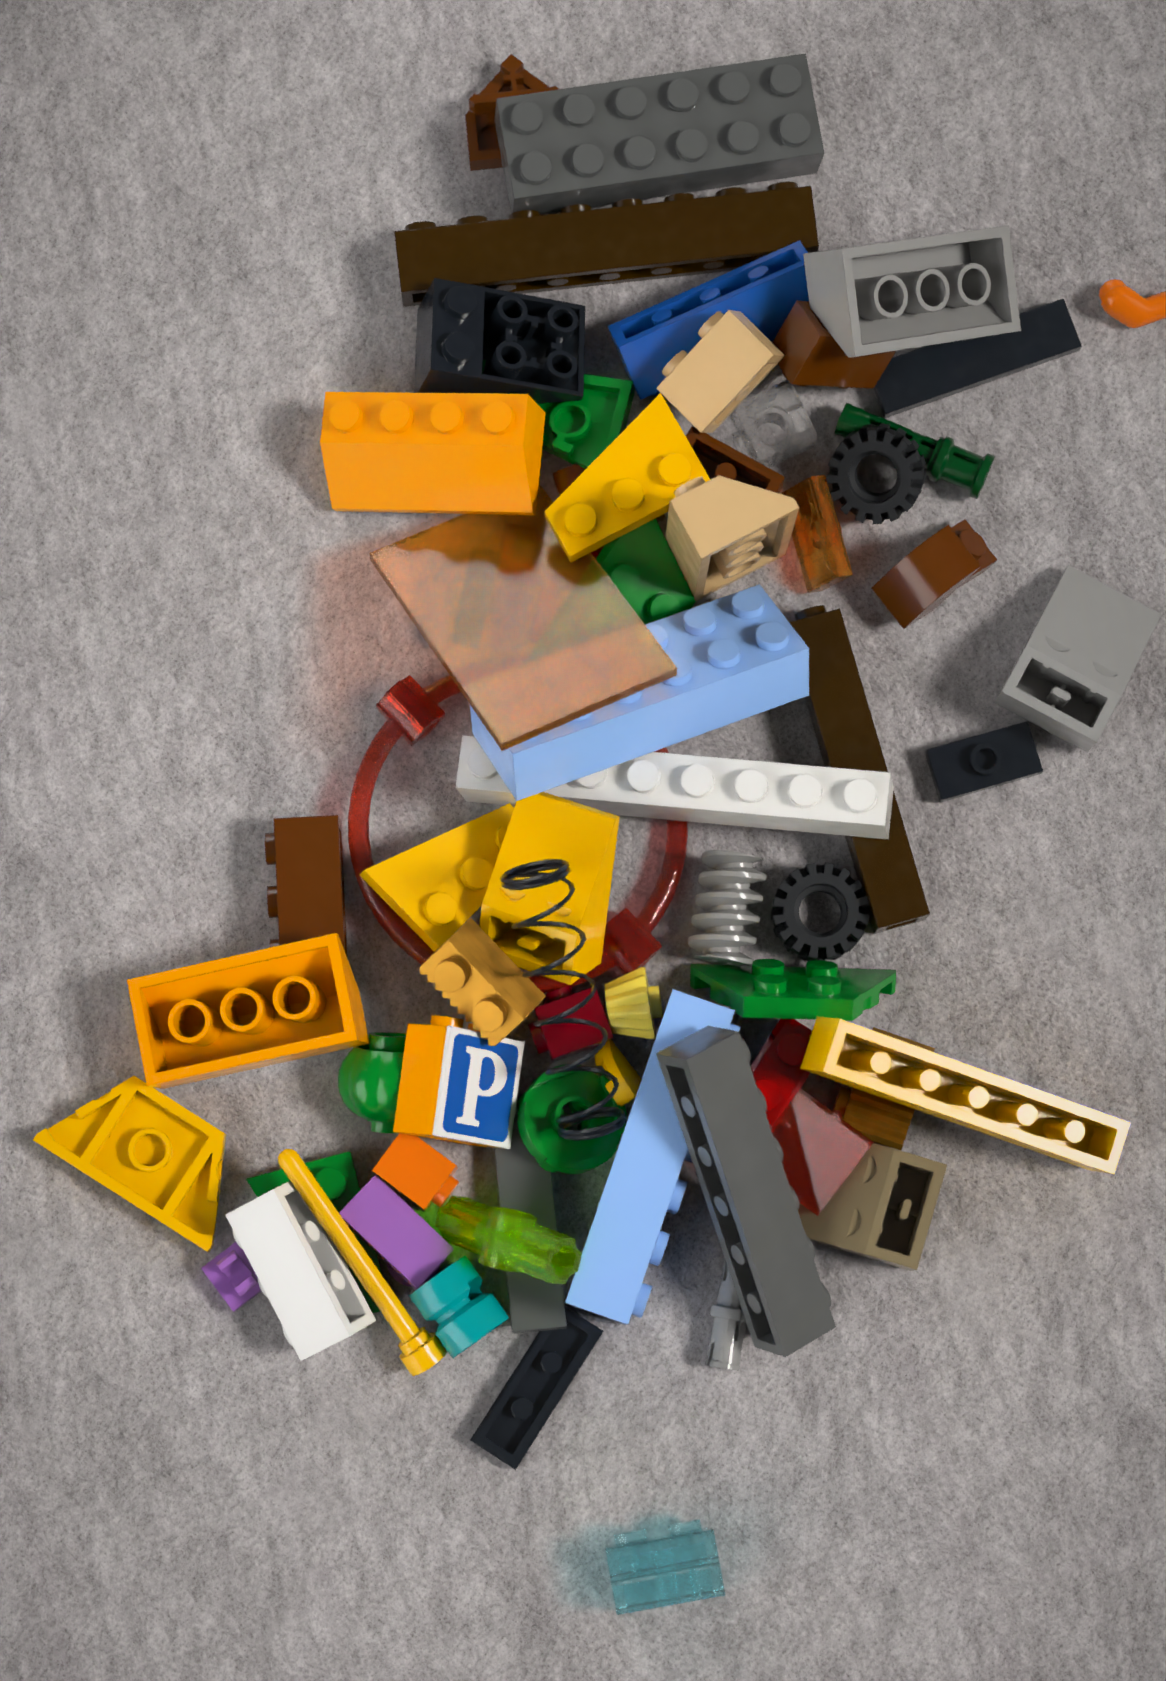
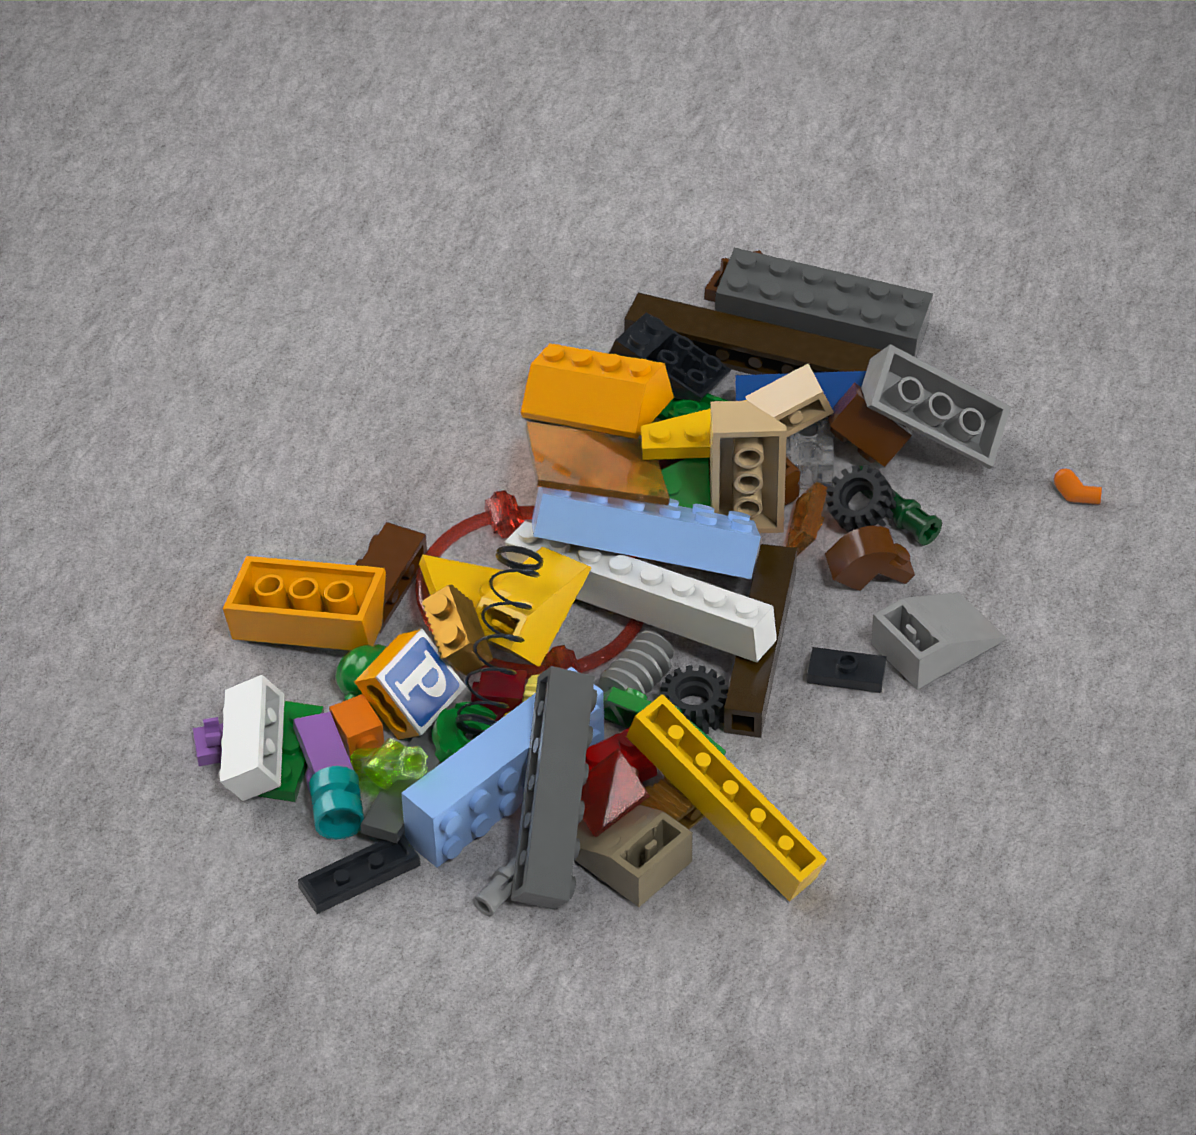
camera: 30 degrees right, 35 degrees down
(147, 1155) = (199, 661): yellow wing -> none
(418, 1347) = (298, 818): yellow piece -> none
(664, 1568) = (375, 992): clear light blue brick -> none
(965, 364) = (959, 479): black tile -> none

